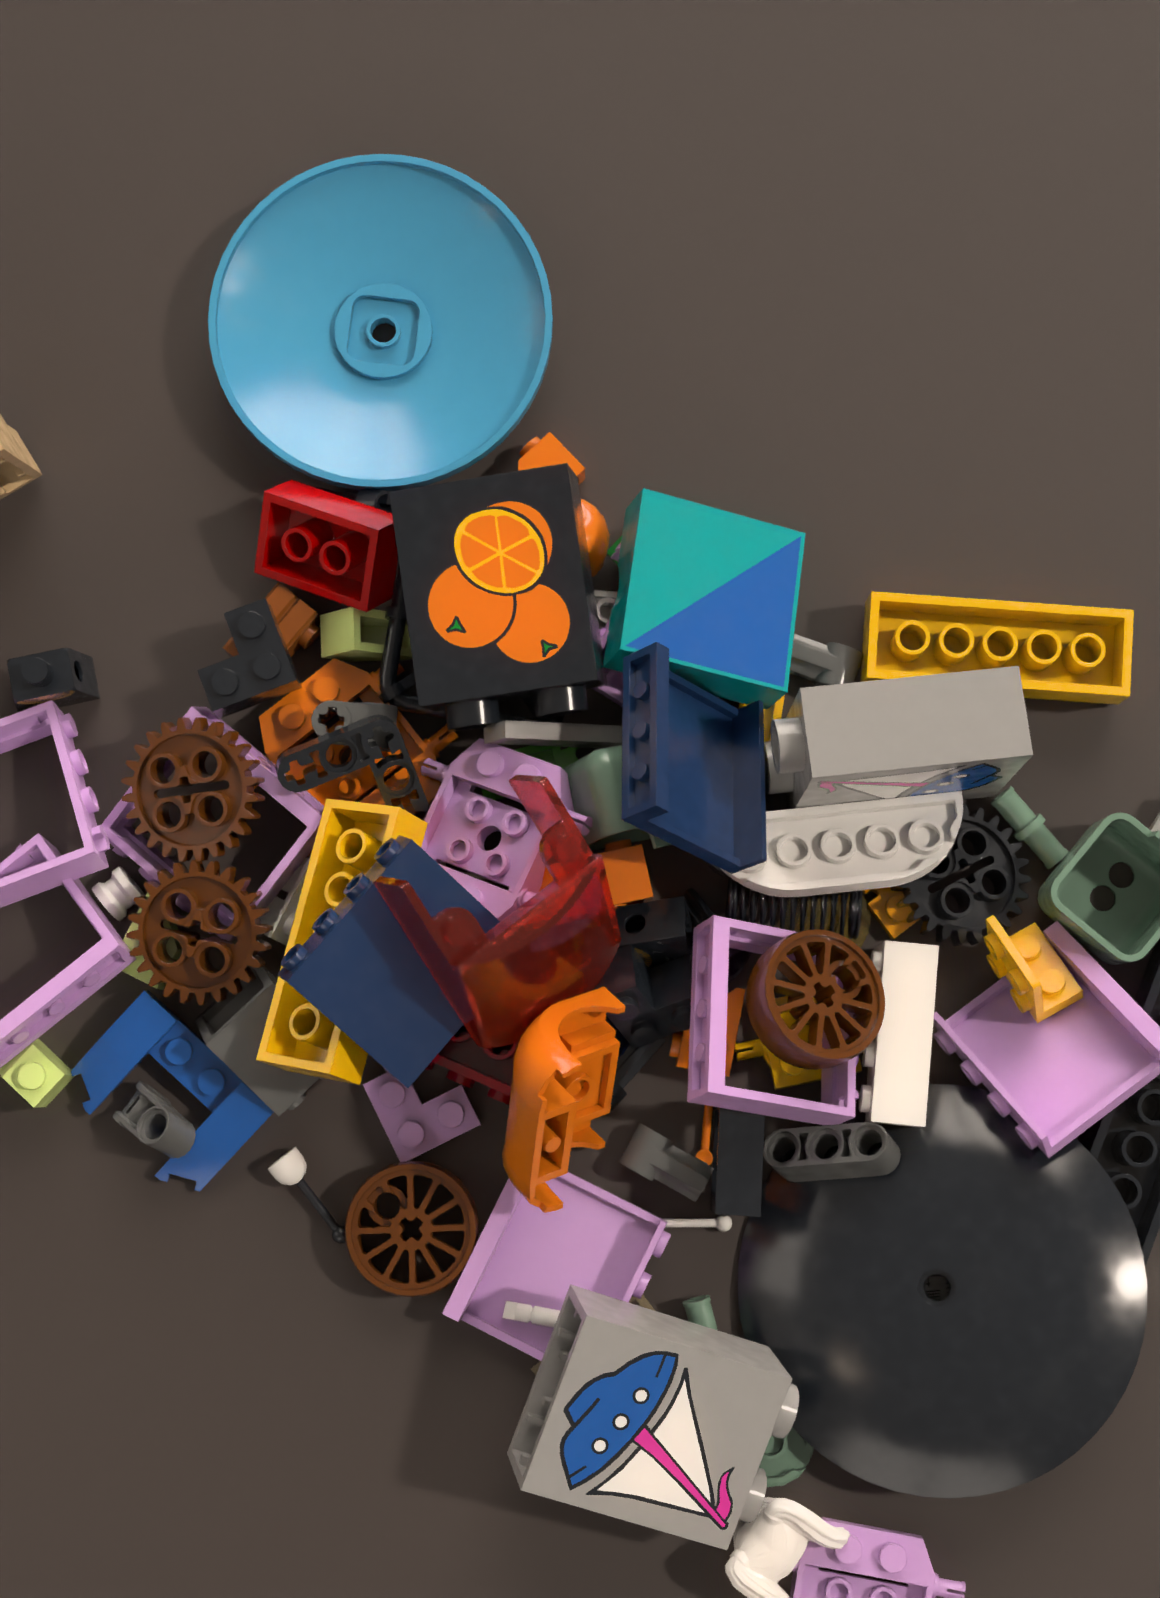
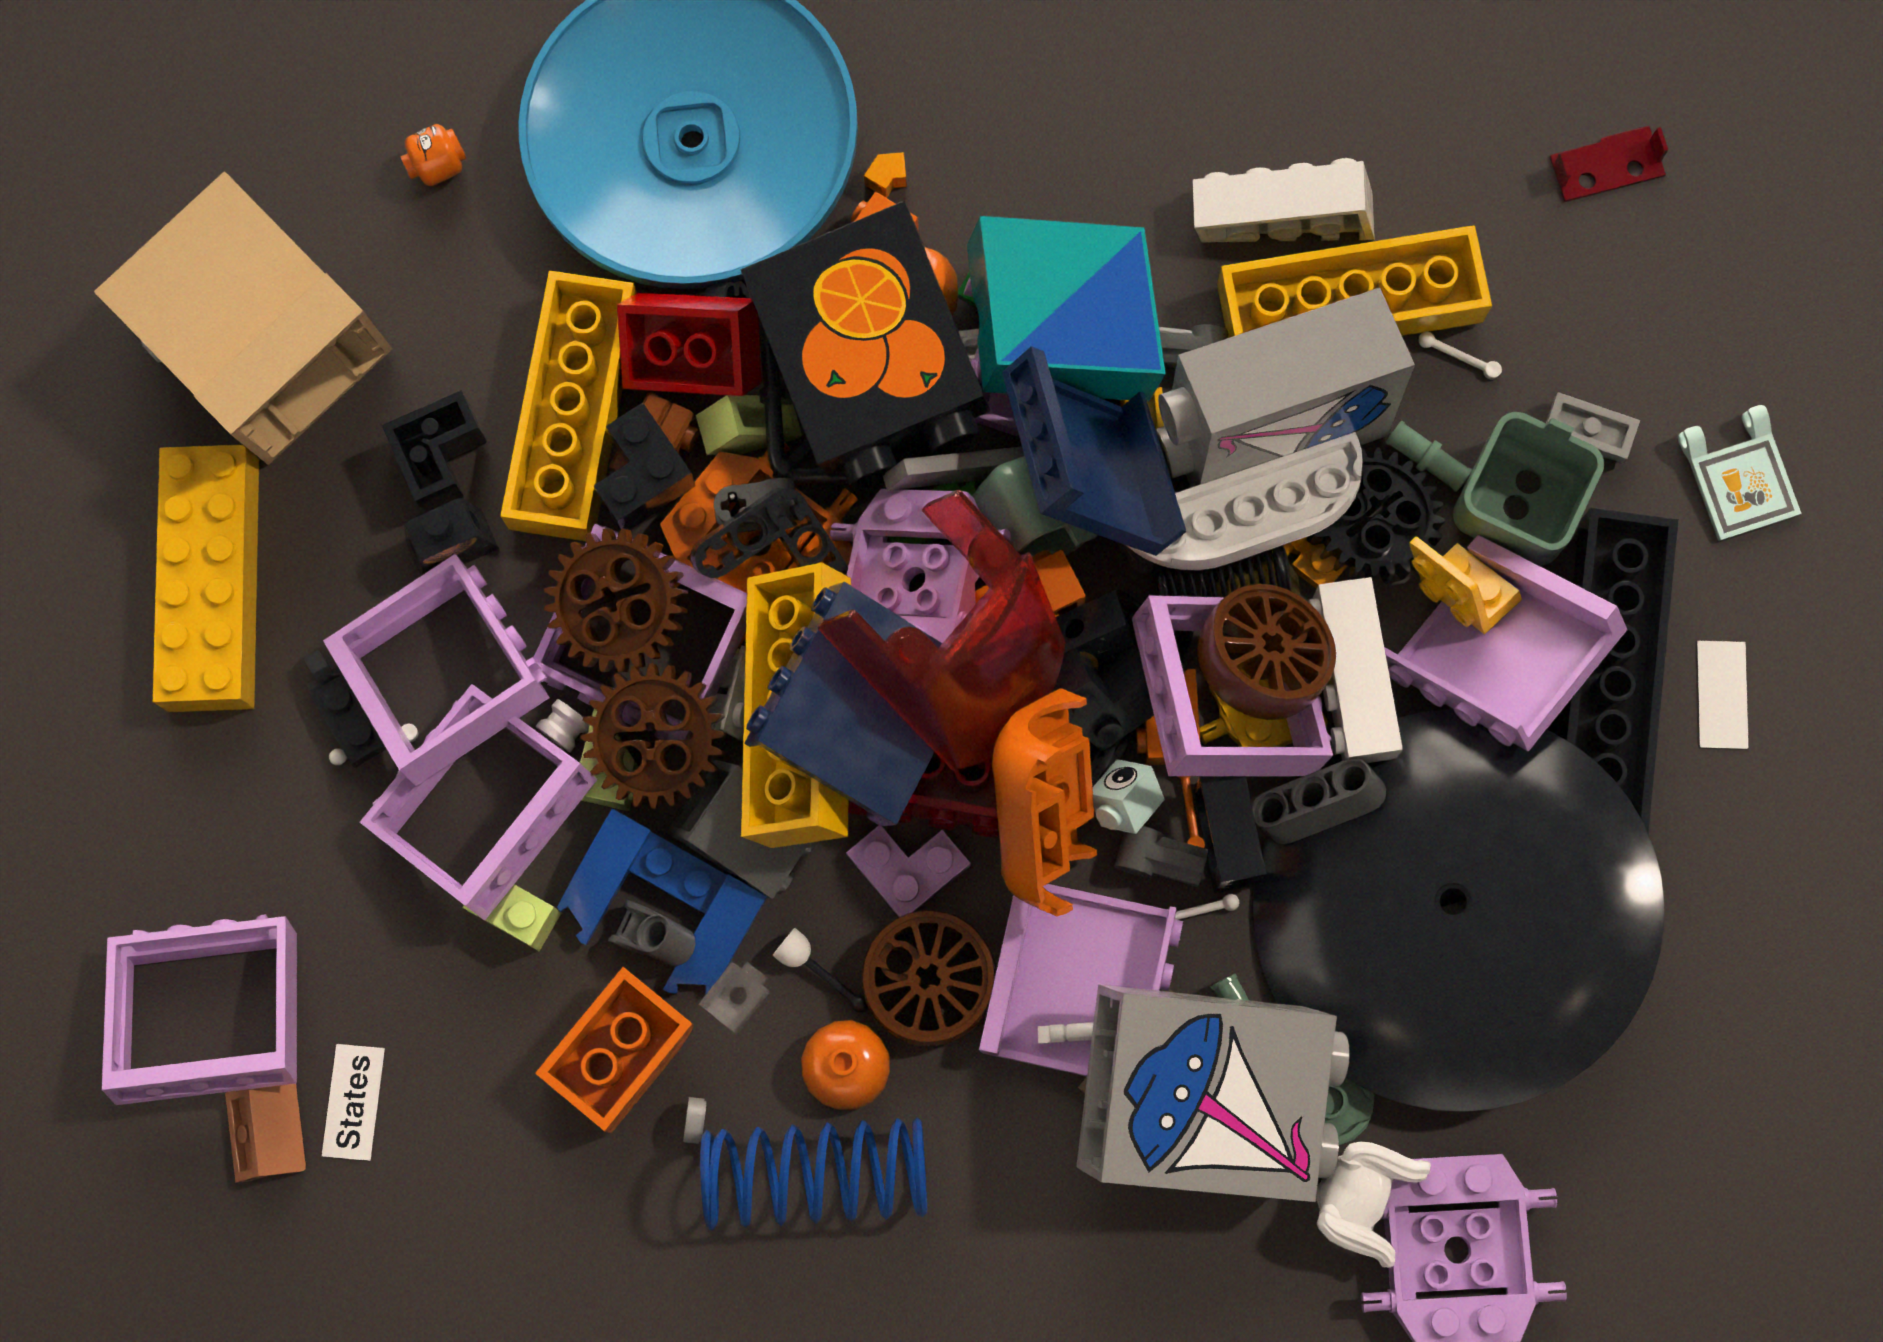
camera: 10 degrees left, 5 degrees down
(46, 583) = (426, 442): none -> black brick
(90, 1229) = (616, 1050): none -> orange brick
(125, 289) = (433, 155): none -> orange head
(151, 1383) = (915, 1167): none -> blue piece
(154, 1311) = (694, 1120): none -> light grey tile
(195, 579) = (566, 408): none -> yellow brick
(205, 1203) = (719, 1002): none -> clear brick
(312, 1292) = (845, 1065): none -> orange cylinder
(567, 412) = (886, 173): none -> light orange piece
(646, 1099) = (1126, 796): none -> light aqua brick
(951, 538) = (1285, 203): none -> white wedge
(1113, 753) = (1491, 370): none -> white hinge

